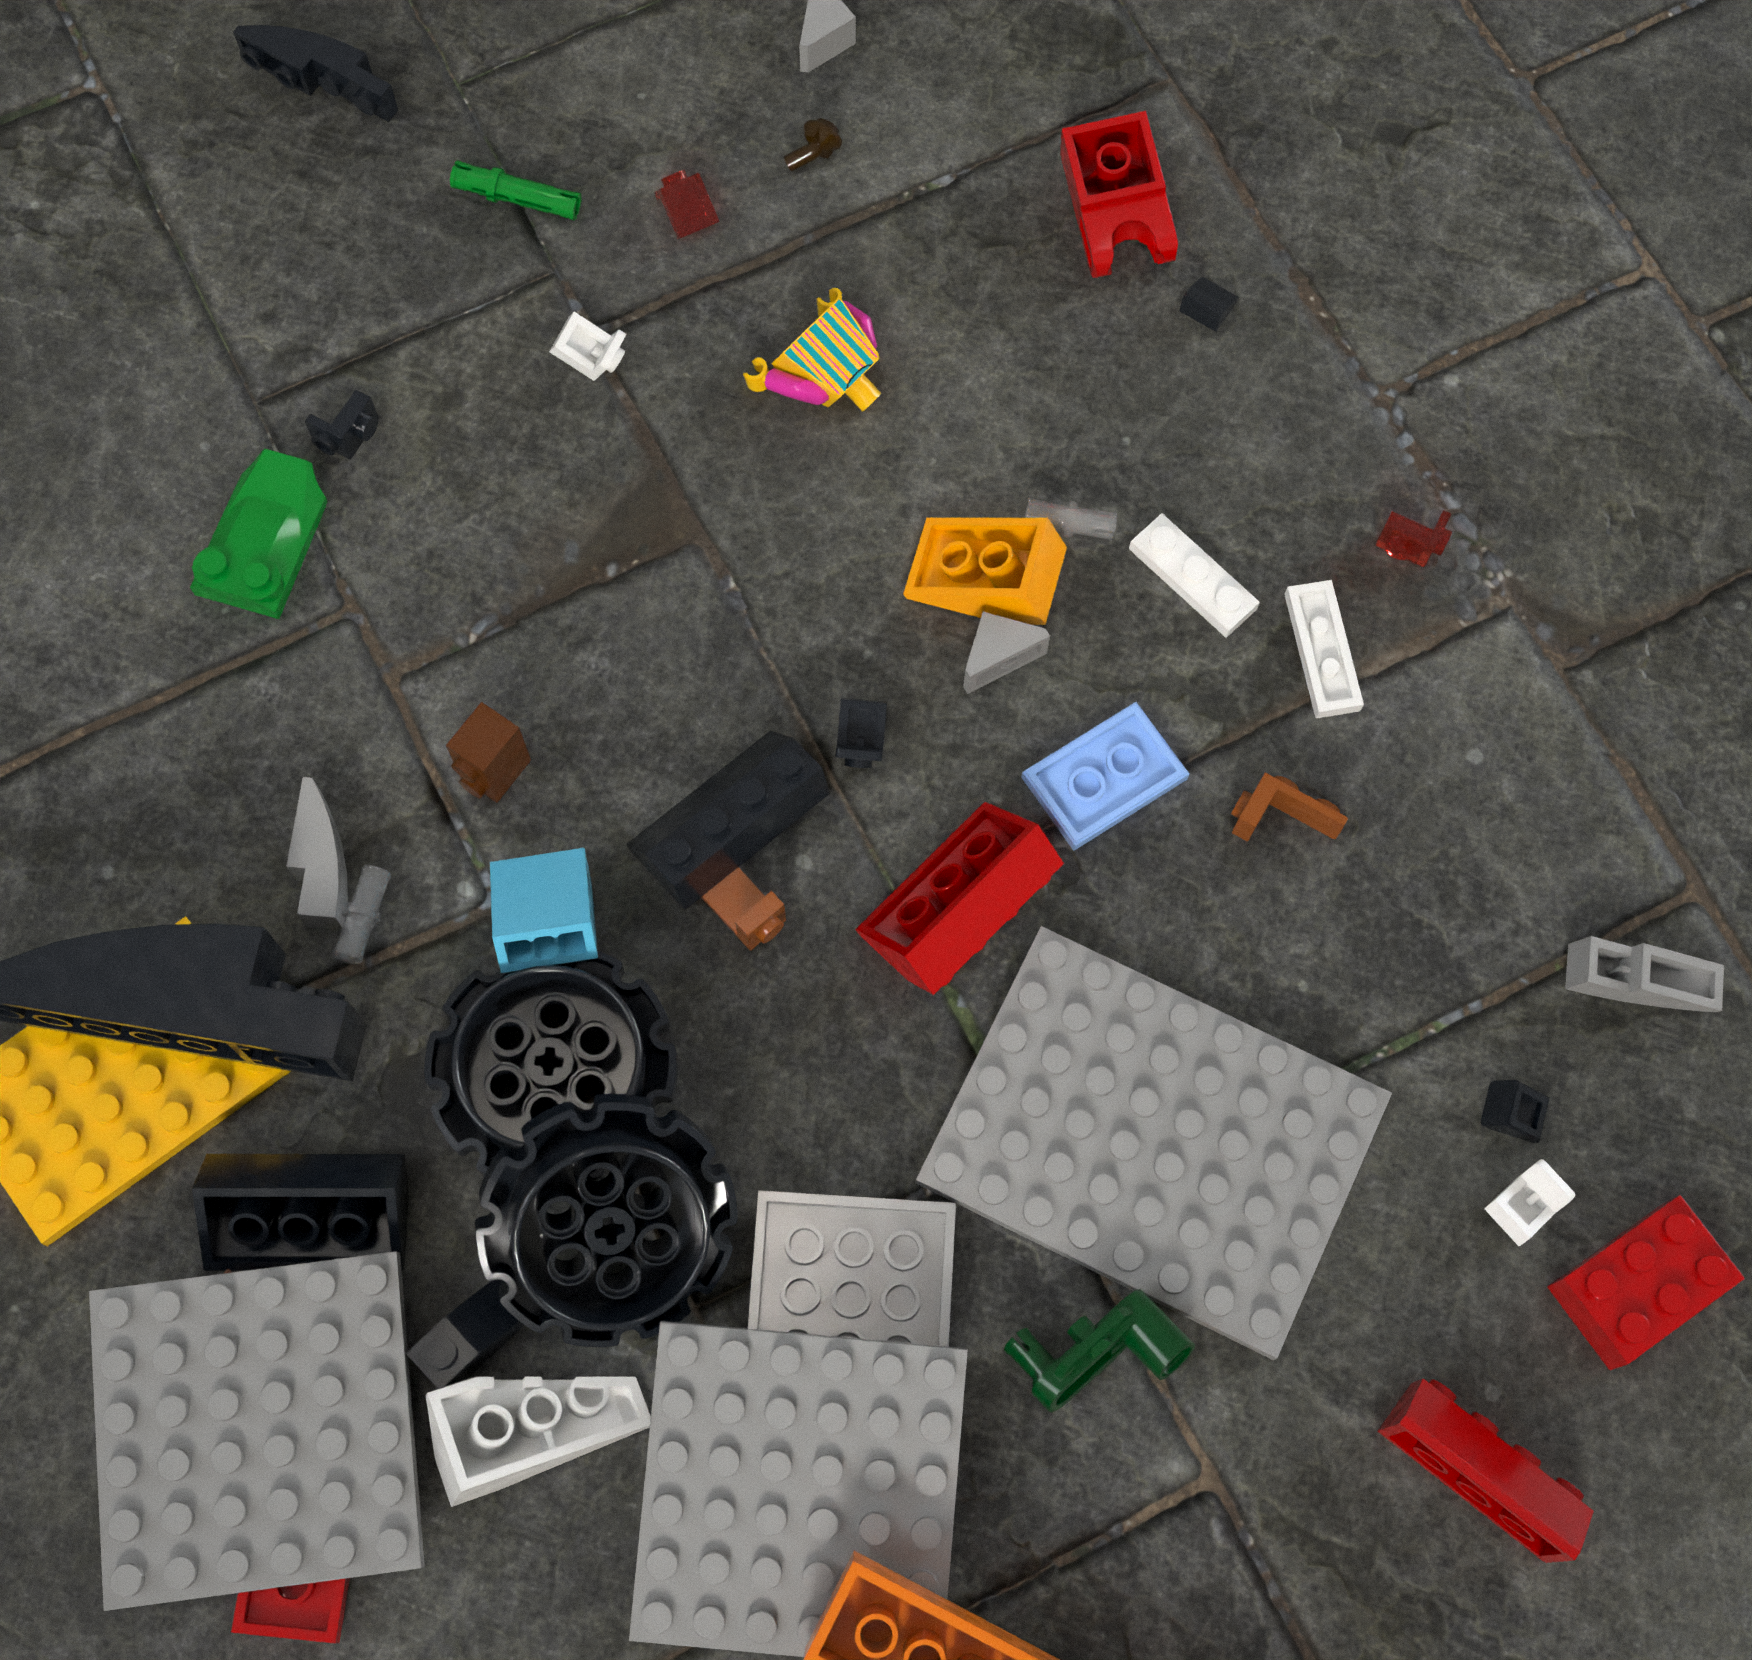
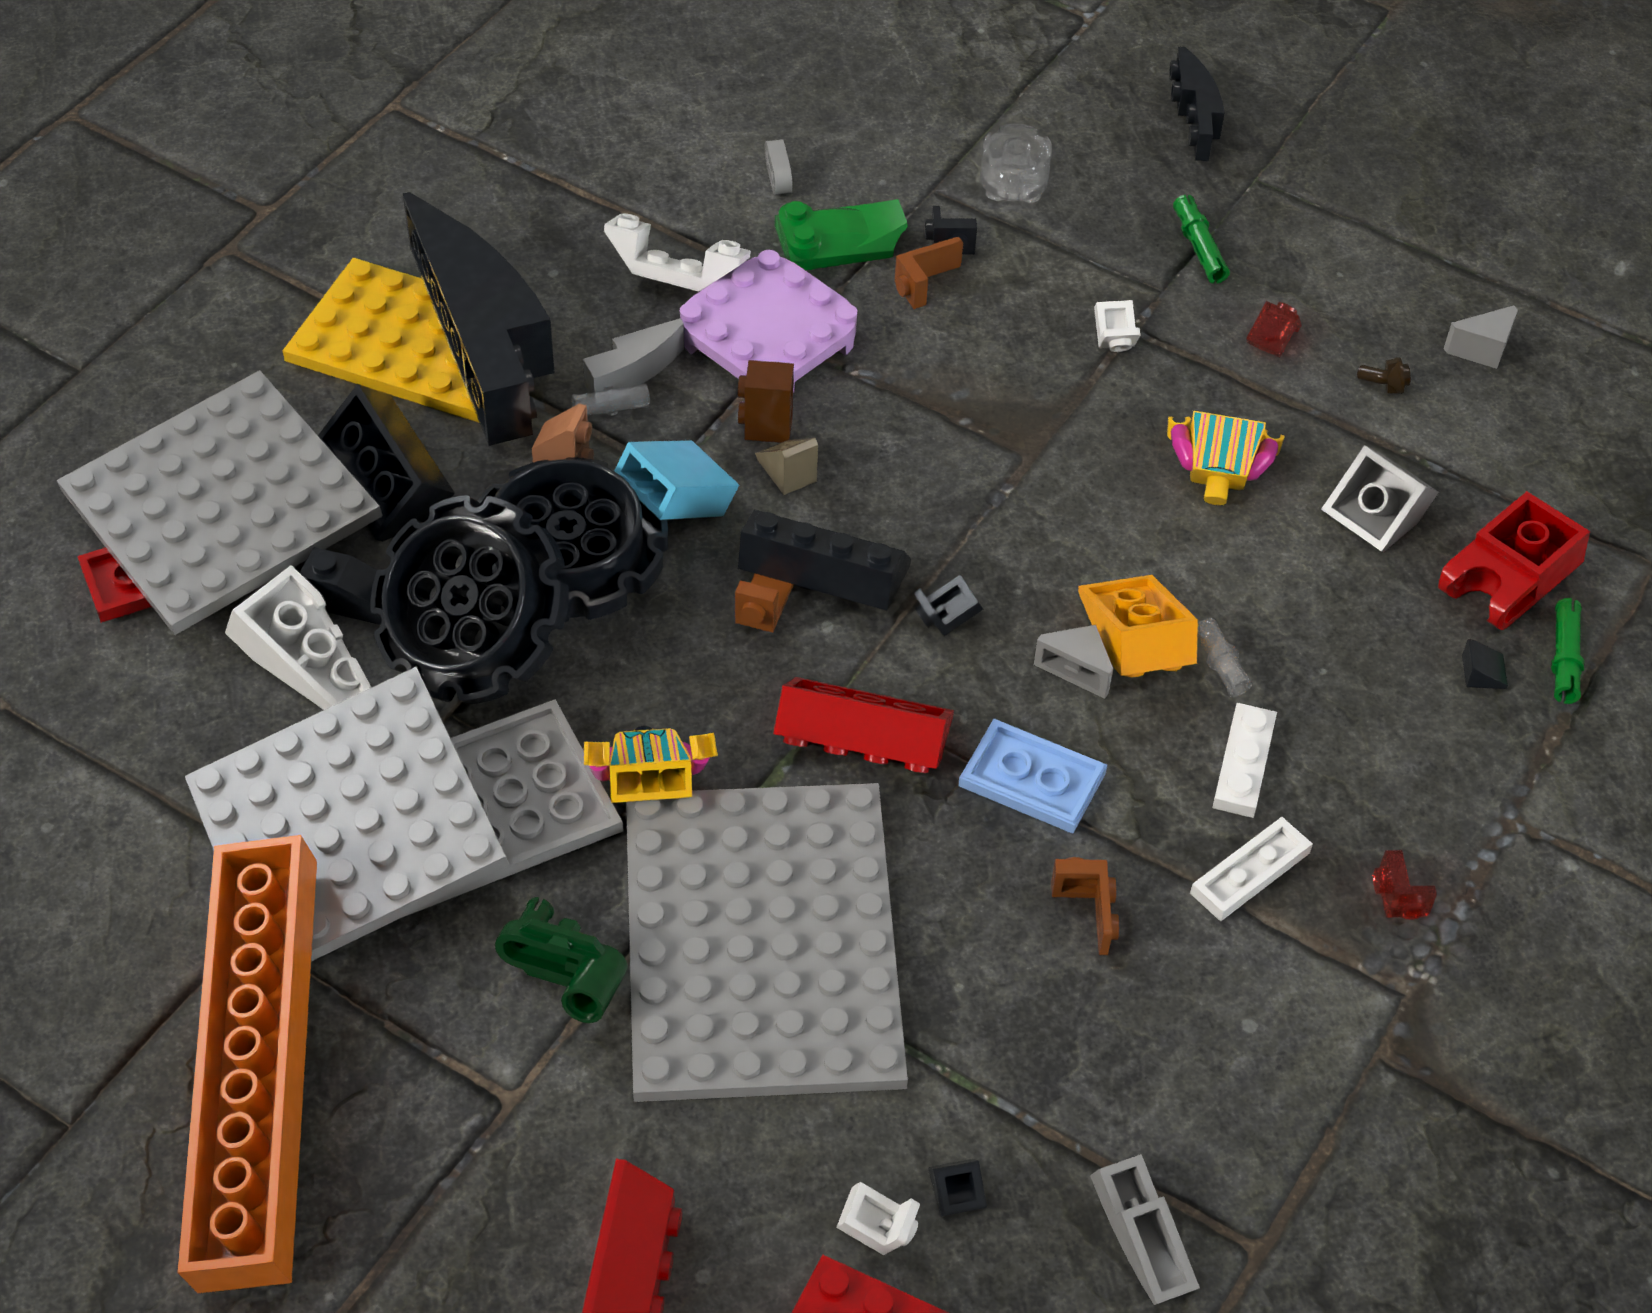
camera: 60 degrees right, 20 degrees down
(117, 541) = (778, 166): none -> light grey beam
(202, 745) = (631, 241): none -> white slope
(291, 299) = (1015, 163): none -> clear brick
(356, 686) = (768, 314): none -> lavender plate
(379, 504) = (916, 265): none -> dark orange bracket
(410, 1000) = (564, 436): none -> nougat slope
(567, 776) = (791, 463): none -> dark tan slope
(908, 1137) = (649, 763): none -> torso
(967, 257) = (1379, 499): none -> light grey slope
(1247, 230) = (1567, 660): none -> green pin

